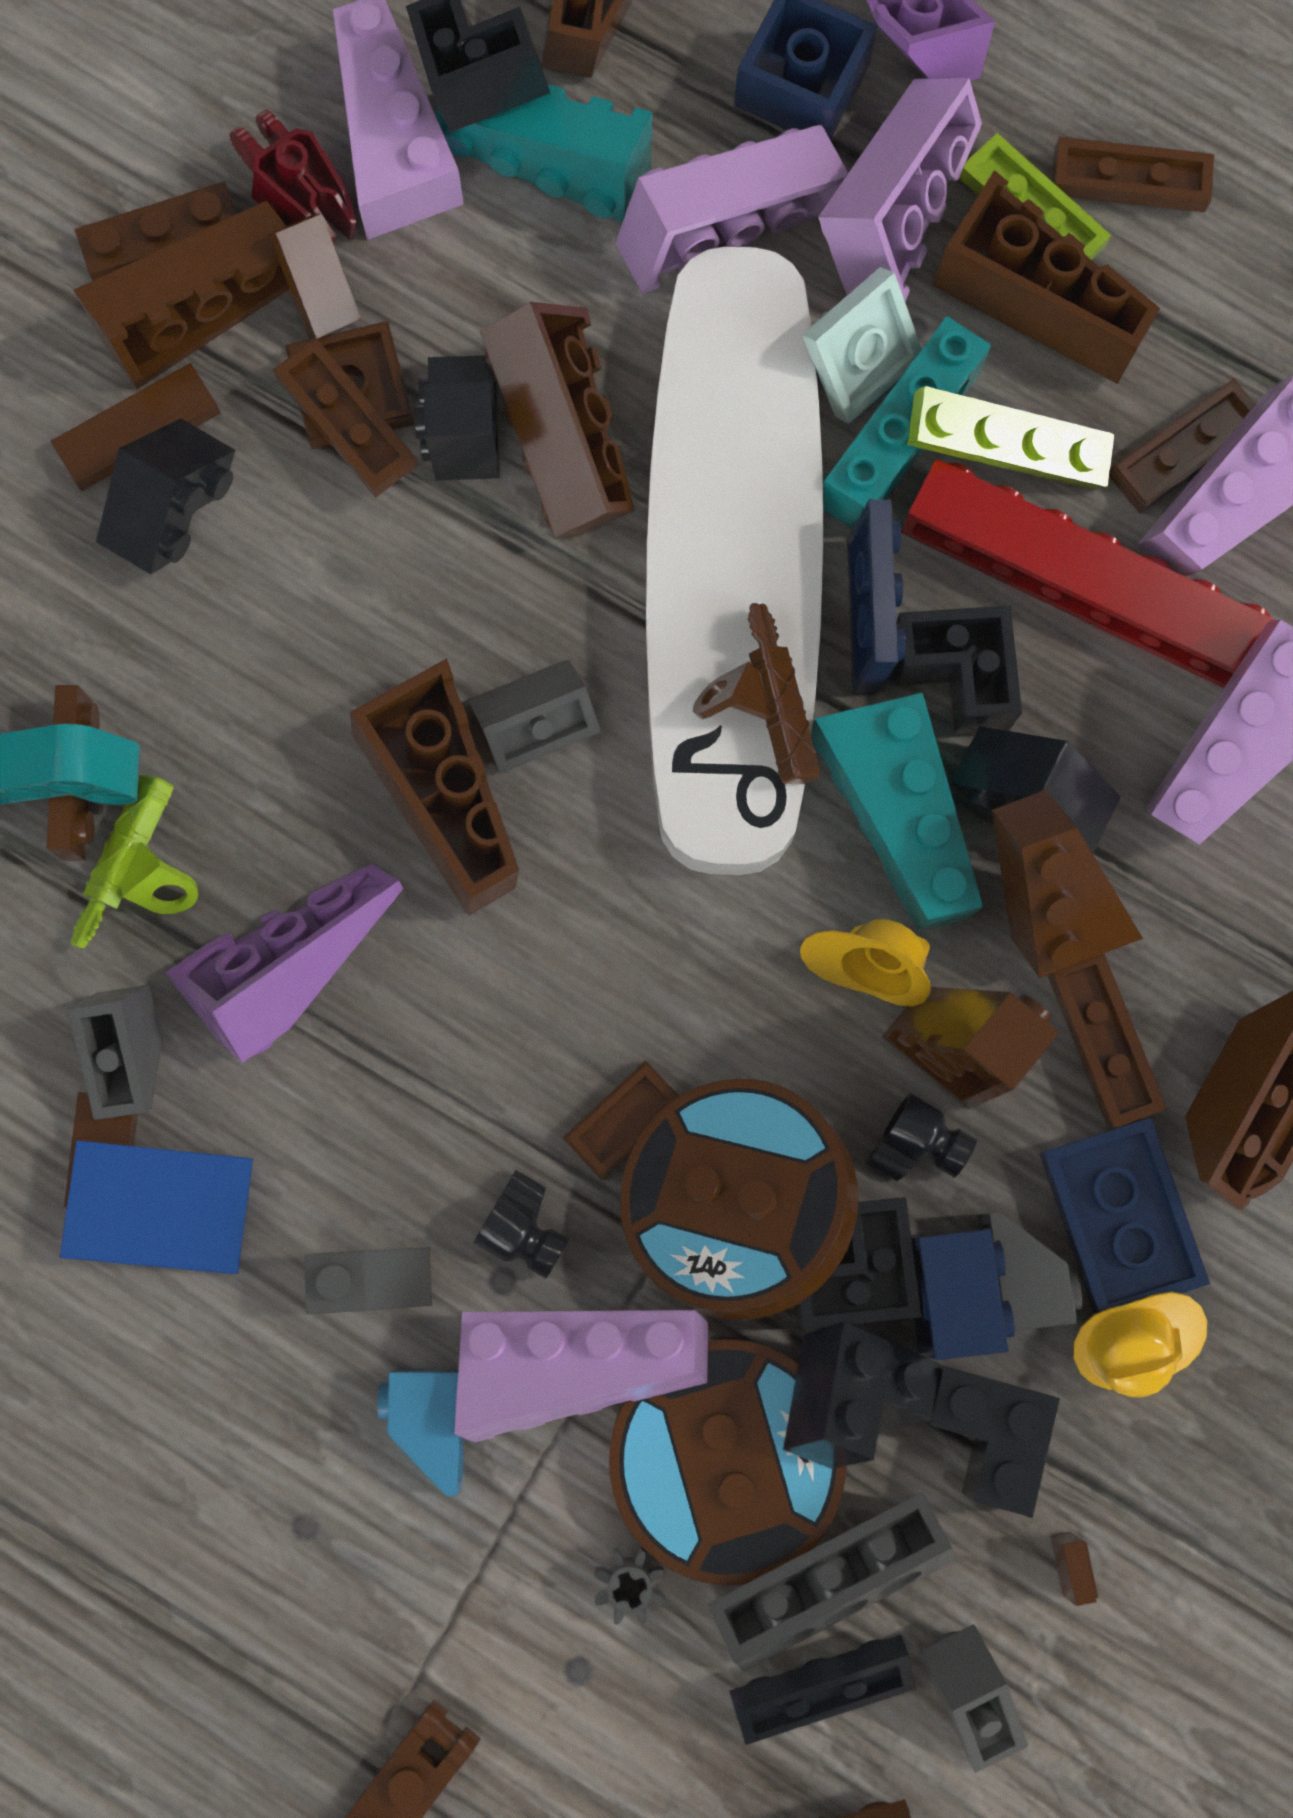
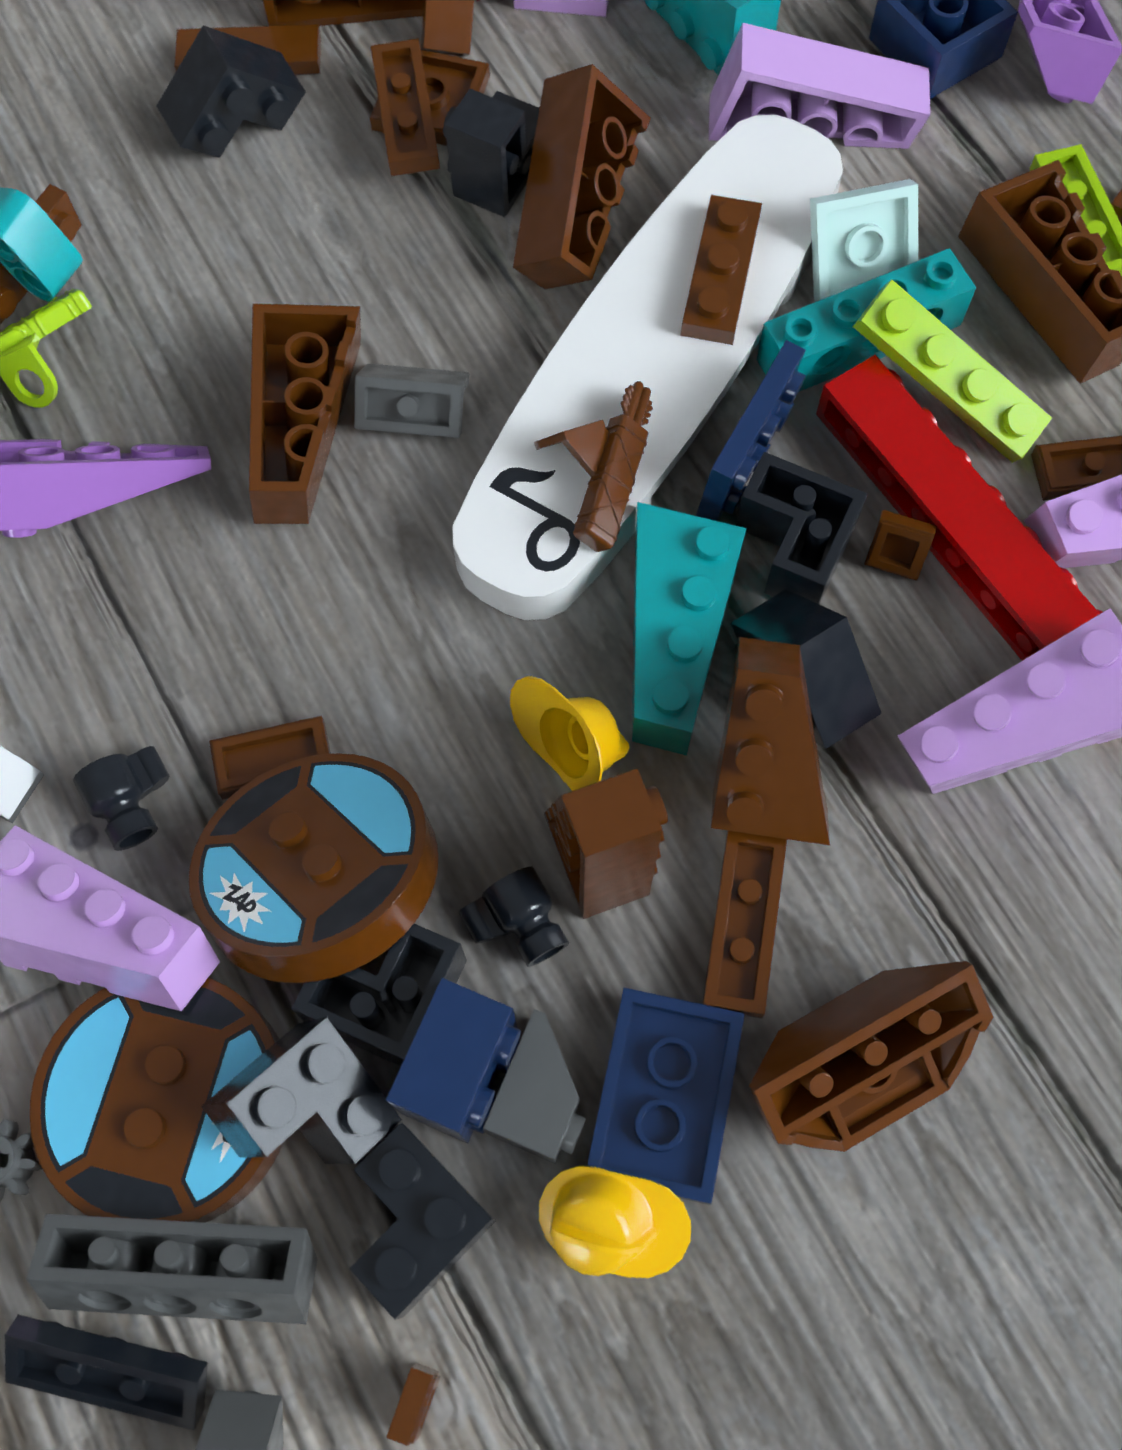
camera: 35 degrees right, 10 degrees down
(755, 444) = (721, 270): none -> reddish brown plate
(901, 182) = (973, 138): lavender wedge -> none
(1050, 629) = (900, 545): none -> reddish brown tile

